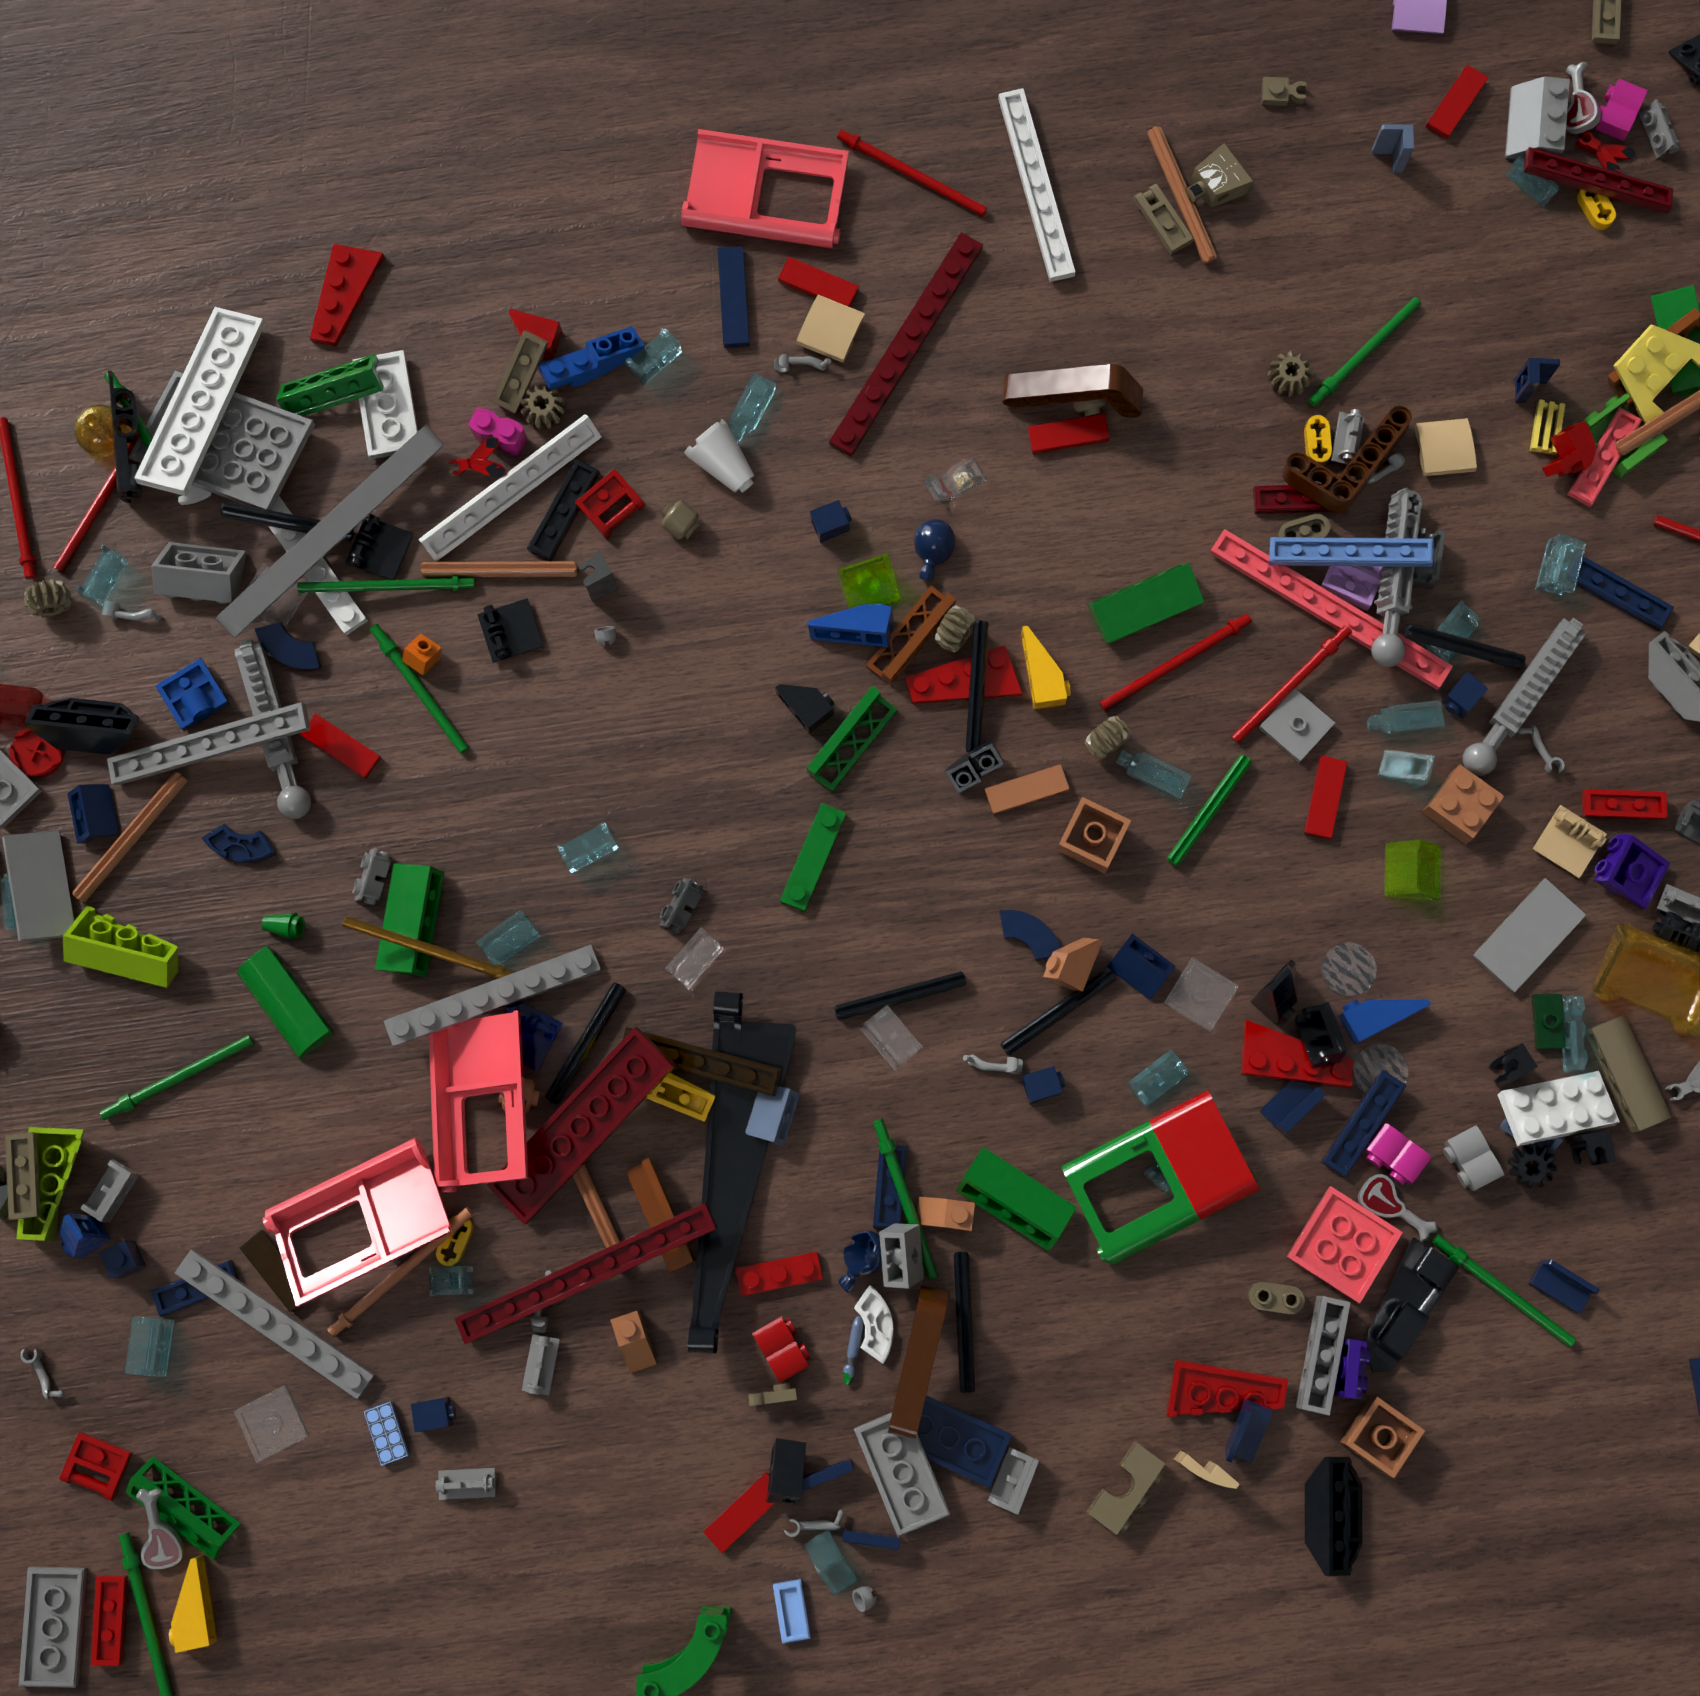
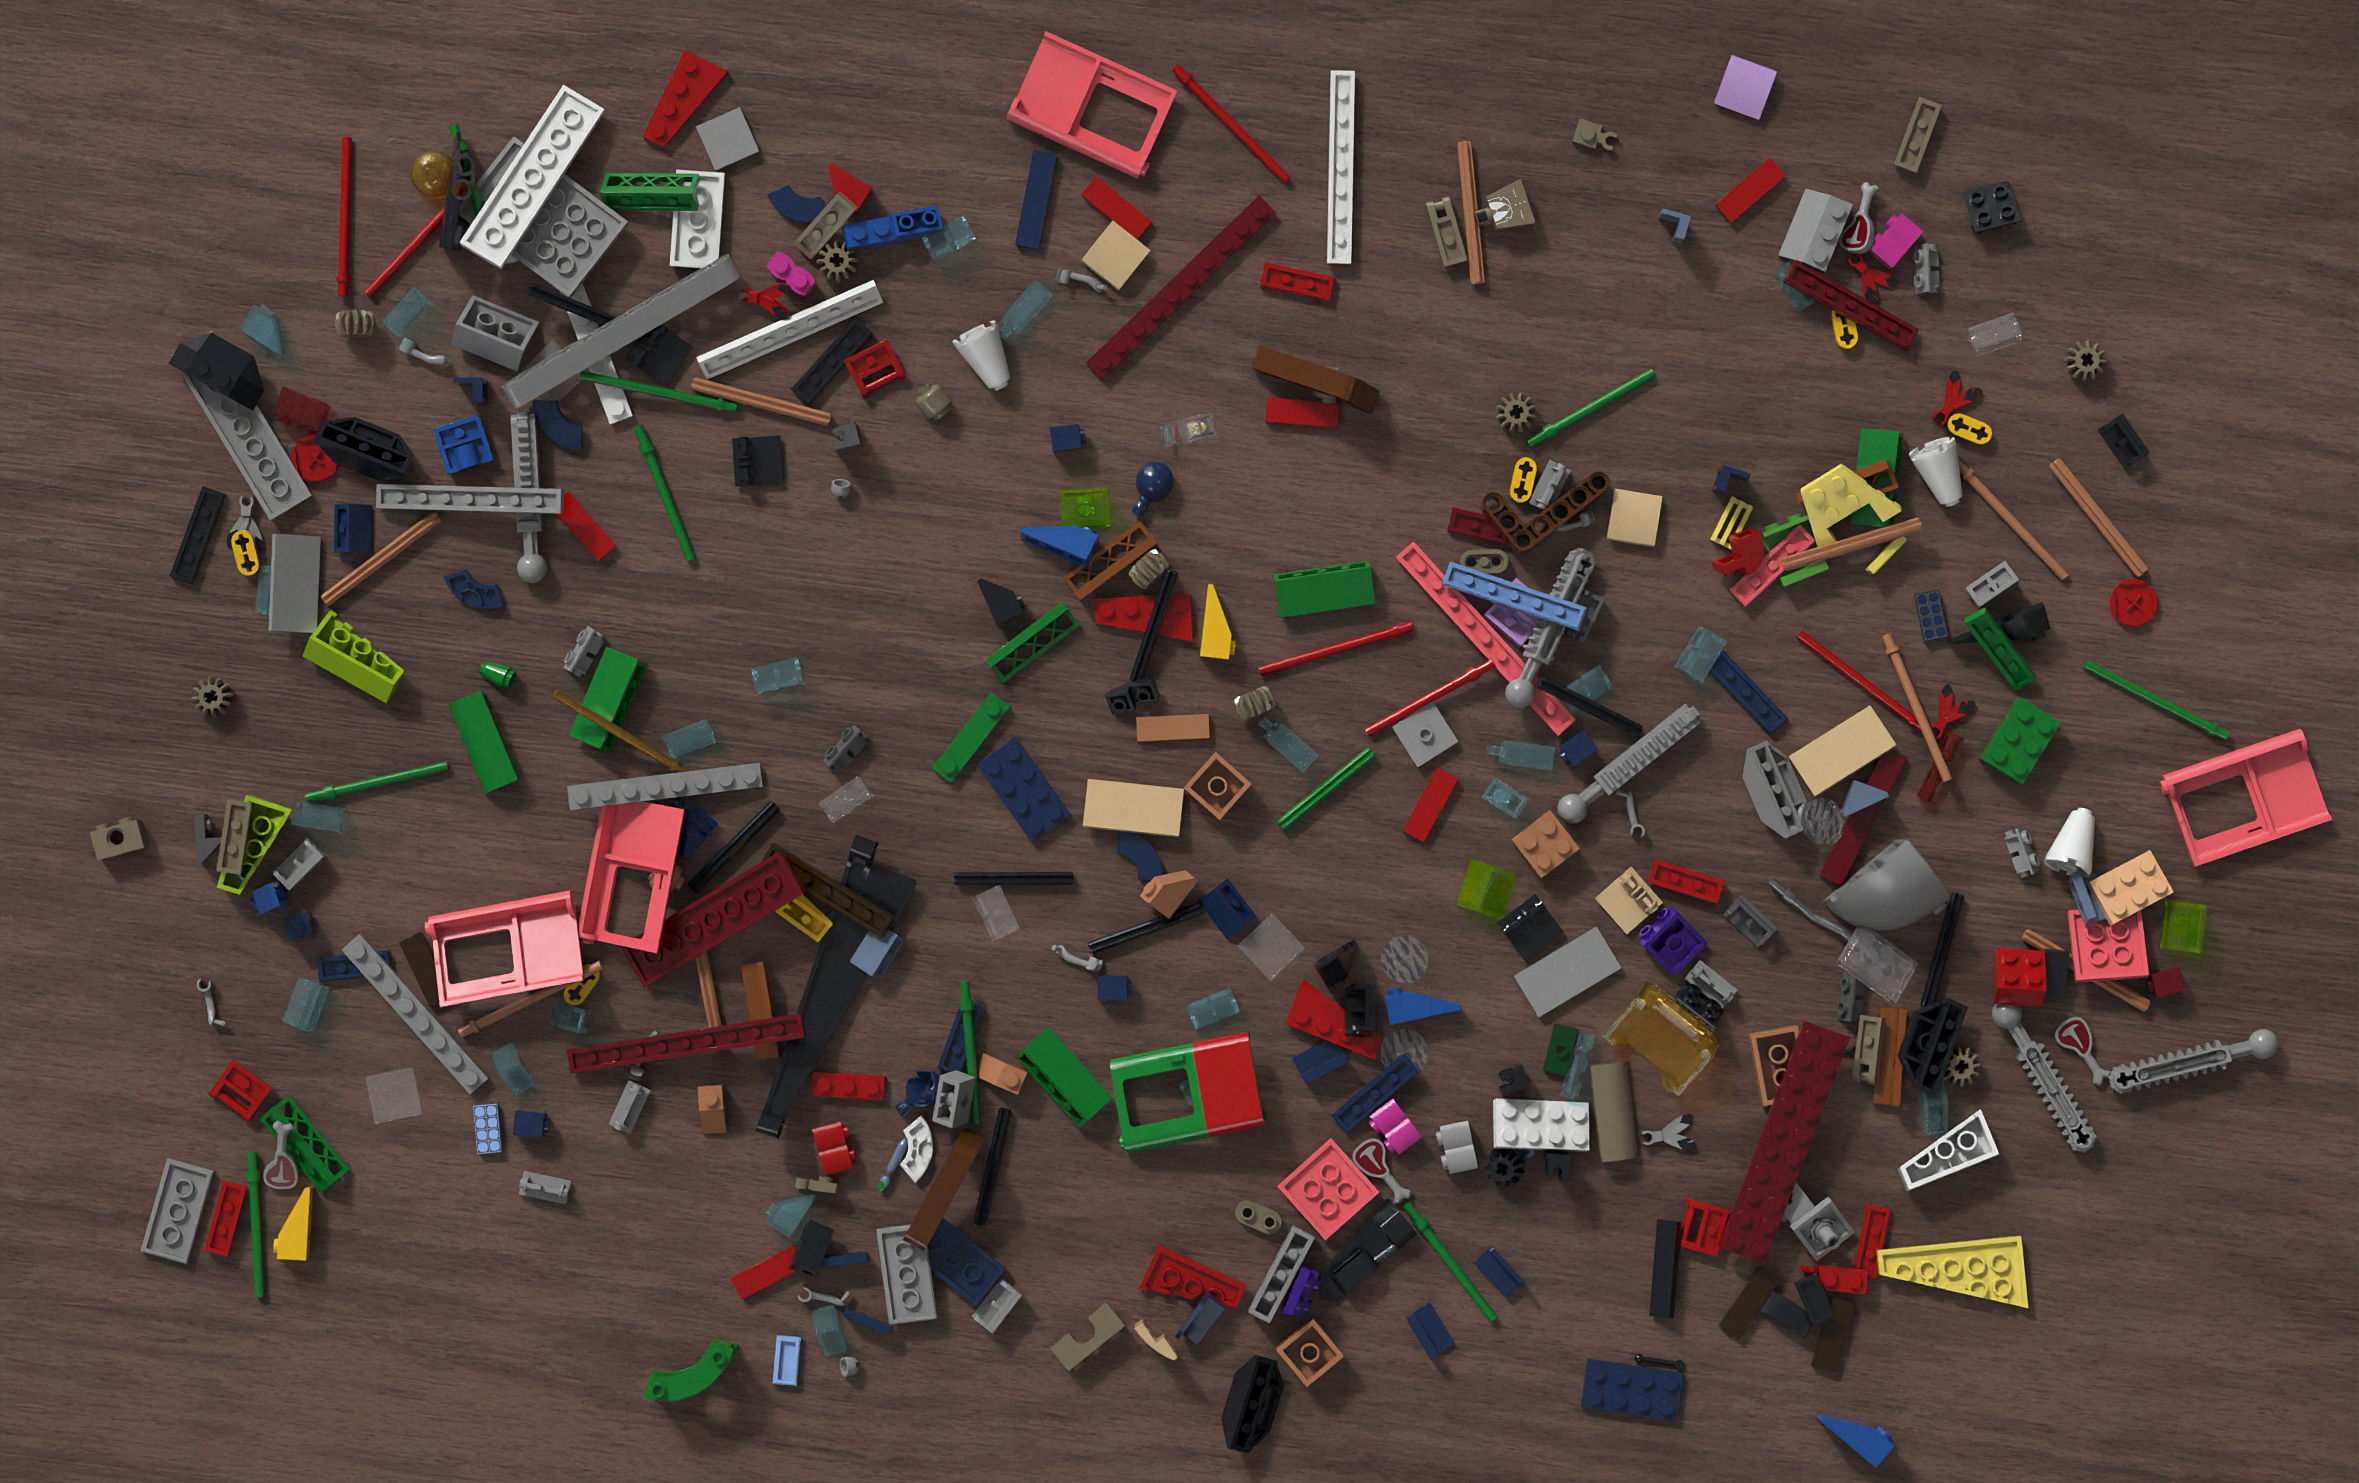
camera: 15 degrees right, 10 degrees up
(120, 1132) = (319, 816): none -> clear light blue hinge
(187, 625) = (480, 388): none -> dark blue panel
(399, 319) = (727, 139): none -> light grey tile
(399, 1357) = (512, 1069): none -> clear light blue slope
(421, 654) = (672, 469): orange plate -> none
(483, 365) = (795, 206): none -> dark blue tile
(750, 1437) = (788, 1213): none -> clear light blue slope
(885, 897) = (1023, 789): none -> dark blue plate
(1009, 885) = (1133, 808): none -> tan tile
(1025, 307) = (1297, 281): none -> red tile
(1473, 898) = (1530, 927): none -> black hinge
(1505, 1375) = (1429, 1330): none -> dark blue panel

